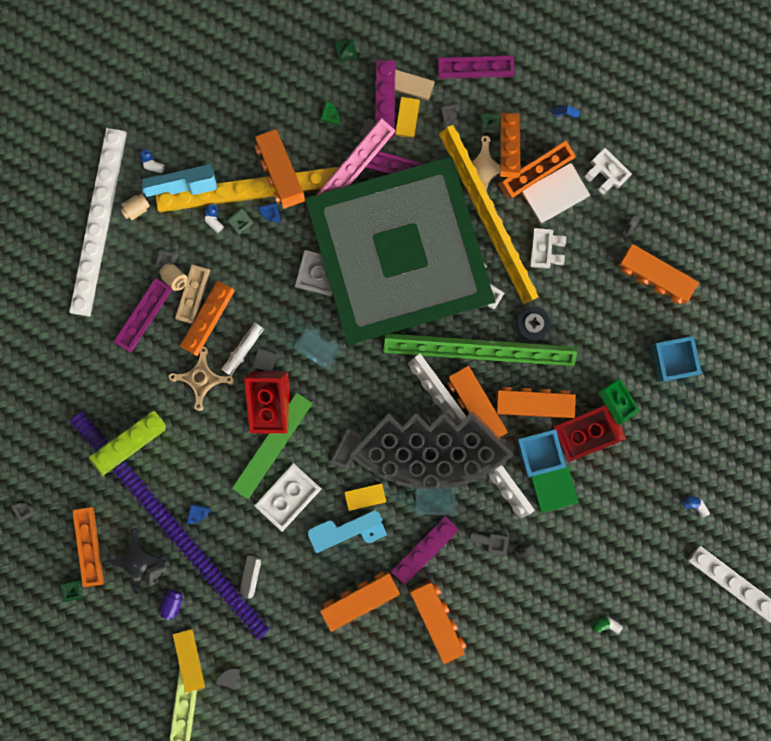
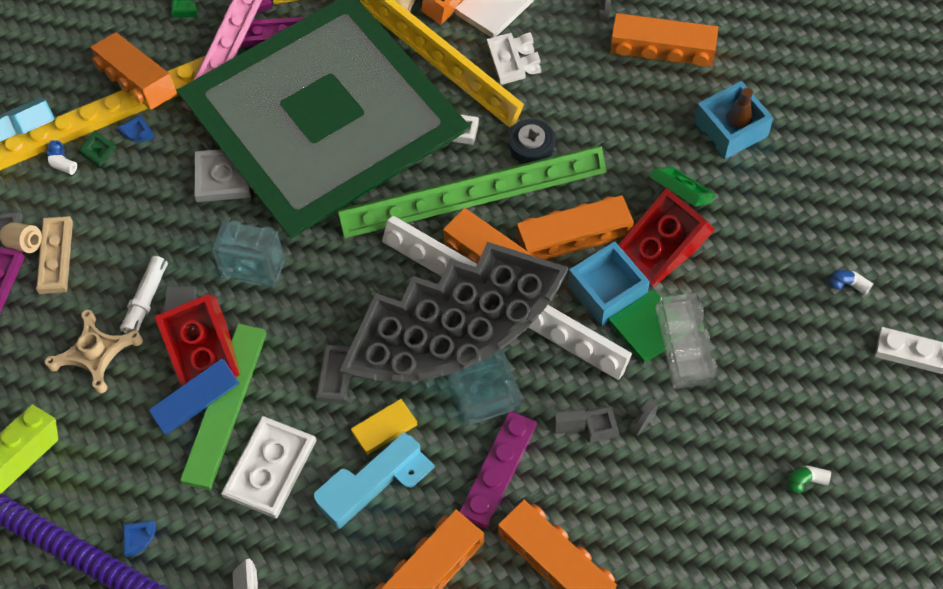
camera: 15 degrees left, 25 degrees down
(207, 318) = (82, 274): orange plate -> none
(255, 437) = (194, 396): none -> blue tile
(572, 513) = (685, 340): none -> clear brick
(681, 359) = (741, 112): none -> reddish brown cone

